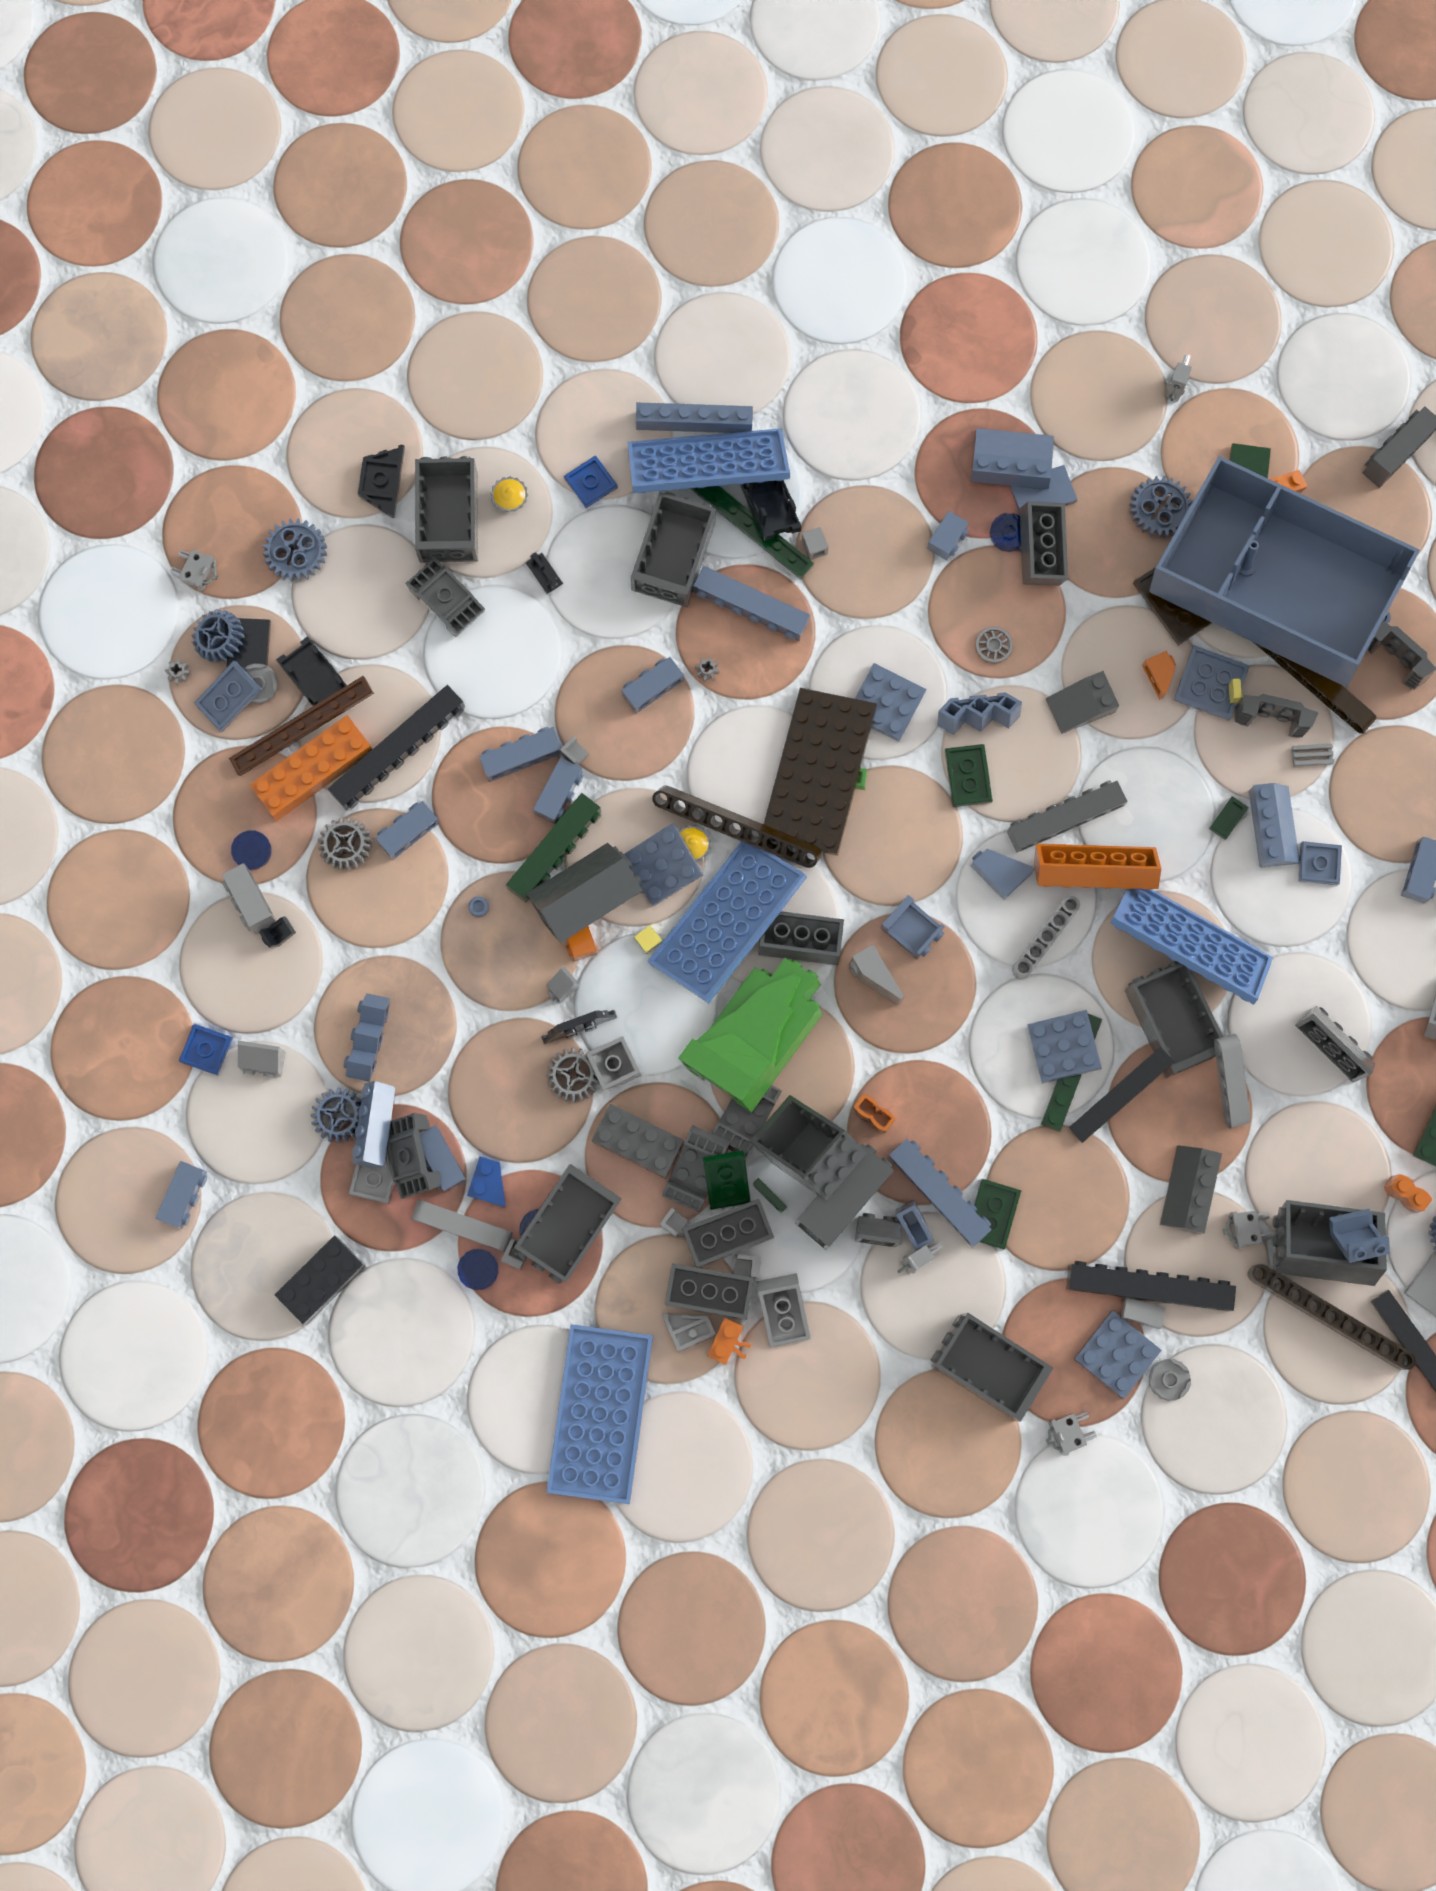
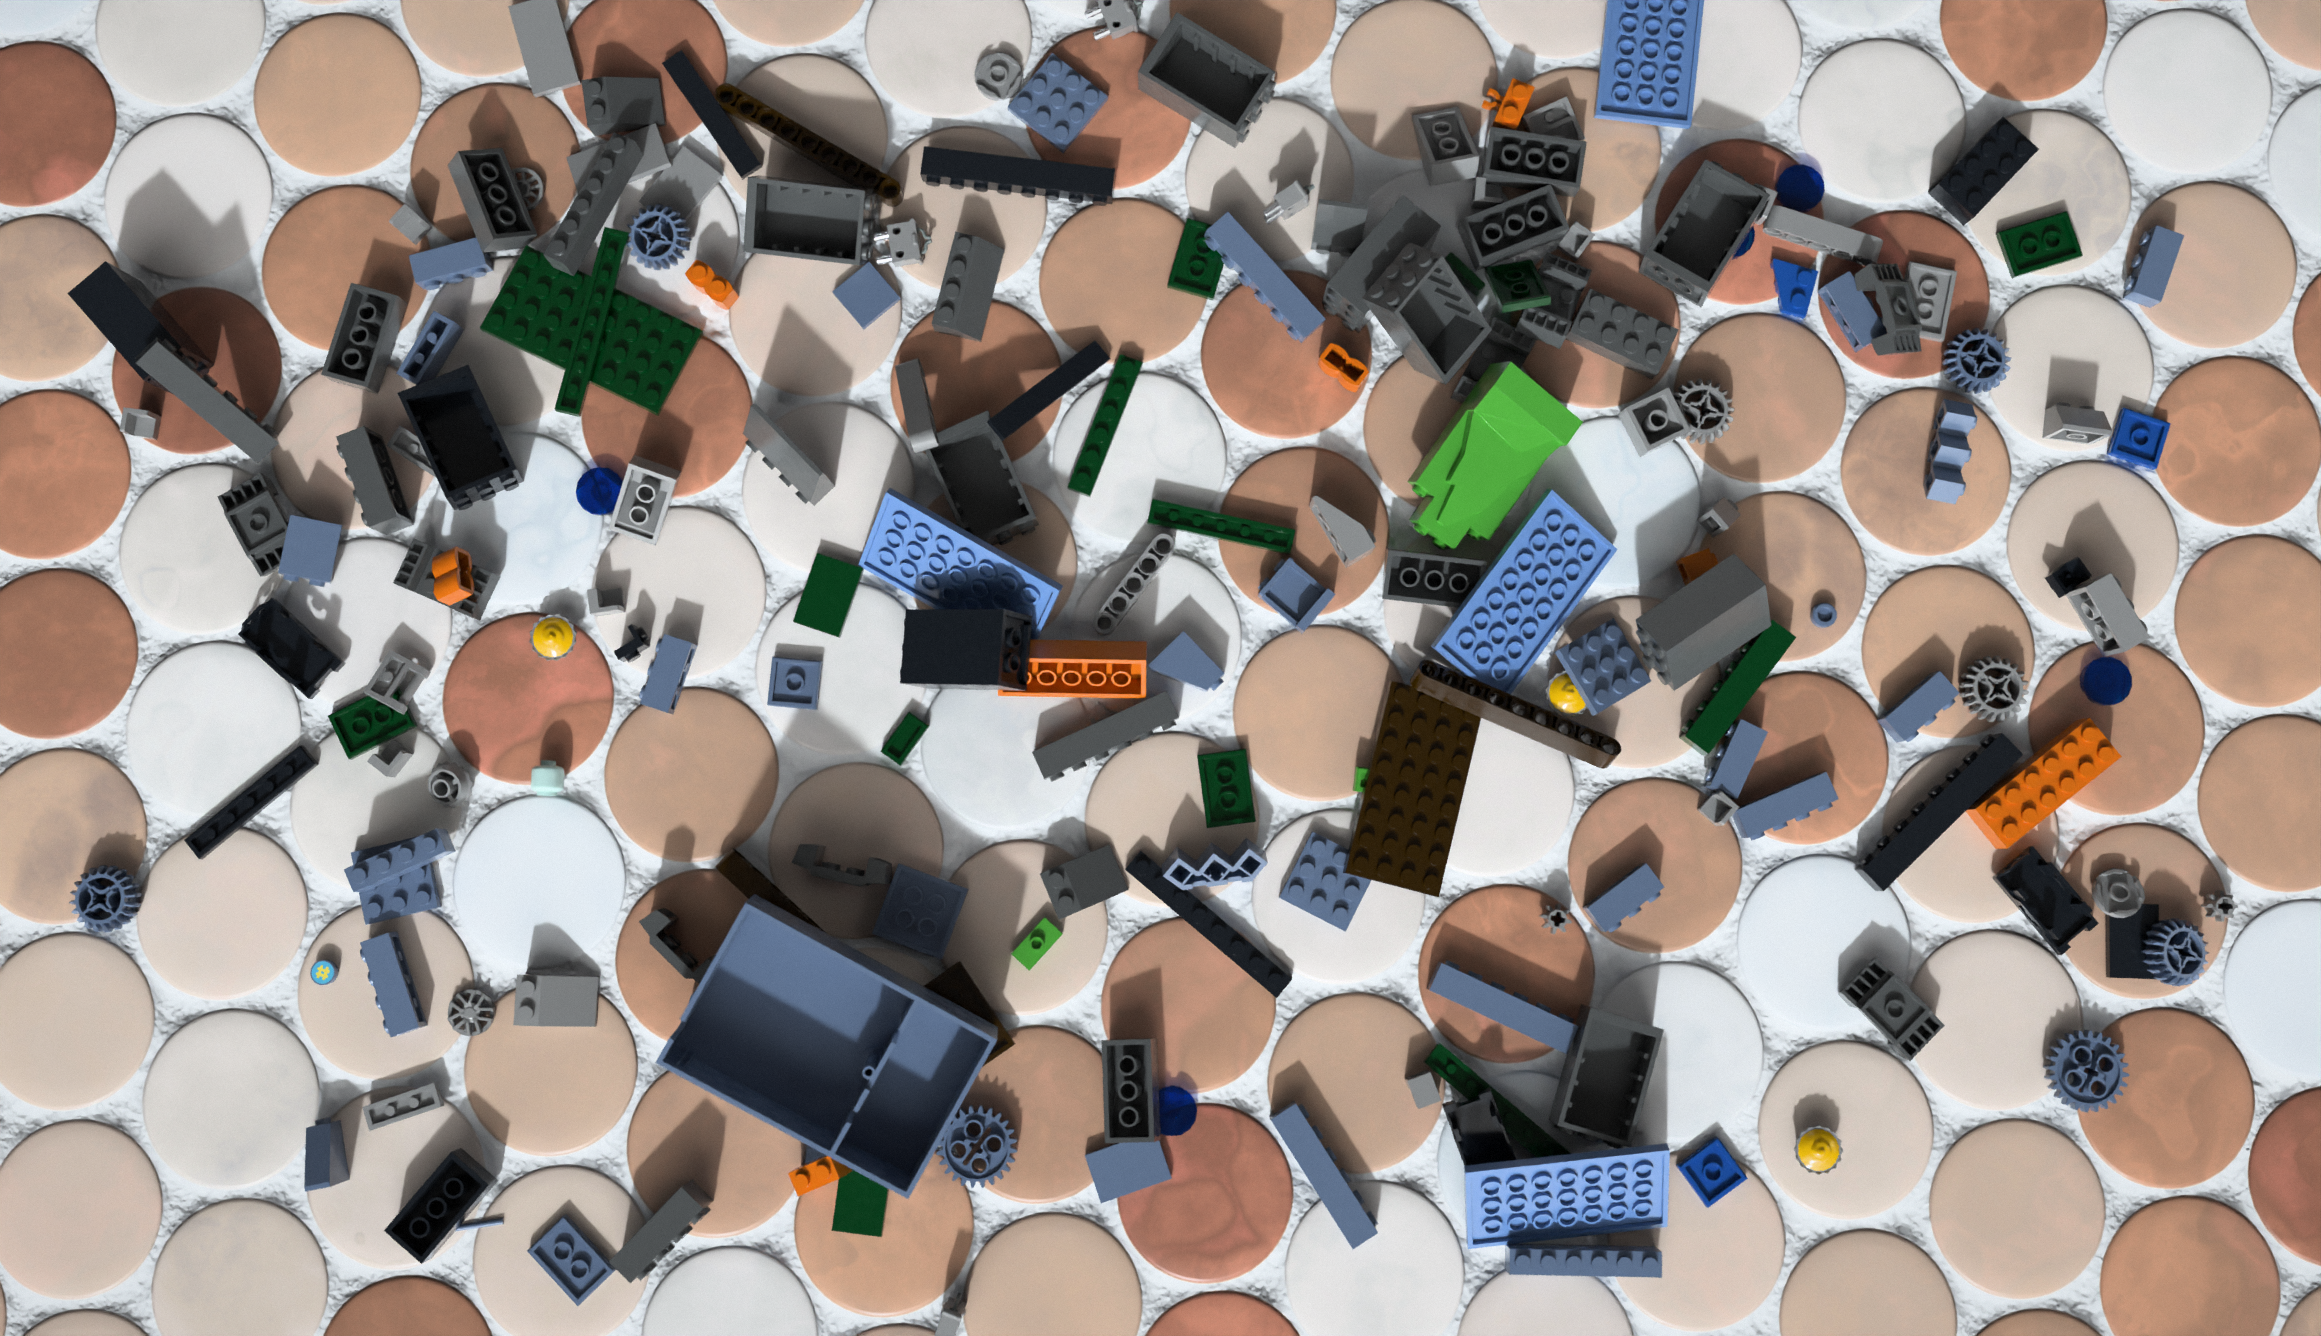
camera: 175 degrees left, 5 degrees up
(196, 569) = (2208, 1042): light grey piece -> none
(228, 696) = (2154, 874): sand blue tile -> none
(275, 1217) = (2039, 244): none -> dark green tile
(301, 725) = (2060, 836): reddish brown tile -> none
(373, 1125) = (1937, 345): brick -> none
(381, 479) = (1981, 1170): black wing -> none
(446, 509) = (1899, 1126): dark grey container -> none
(544, 572) = (1766, 1046): black hinge -> none
(585, 1022) = (1691, 468): black wing -> none
(648, 939) = (1616, 578): light yellow tile -> none
(892, 482) = (1324, 1175): none -> sand blue brick
(914, 1224) = (1295, 241): sand blue slope -> none
(948, 535) = (1251, 1102): sand blue brick -> none
(974, 984) = (1221, 526): none -> dark green plate
(979, 668) = (1209, 925): none -> black plate
(994, 645) = (1193, 958): light grey wheel -> none
(1012, 458) = (1168, 1211): sand blue slope -> none
(1064, 1046) = (1114, 451): sand blue plate -> none
(1117, 657) = (1037, 943): none -> bright green plate
(1143, 1313) = (1027, 146): light grey tile -> none
(1160, 672) = (984, 923): orange slope -> none
(1185, 876) = (966, 649): none -> black container
(1235, 690) = (892, 895): light yellow tile -> none
(1273, 825) = (849, 728): sand blue slope -> none
(1276, 1185) = (866, 295): none -> sand blue tile
(1296, 933) = (828, 595): none -> dark green tile
(1329, 753) = (775, 821): light grey tile -> none
(1358, 1236) = (778, 215): sand blue panel -> none

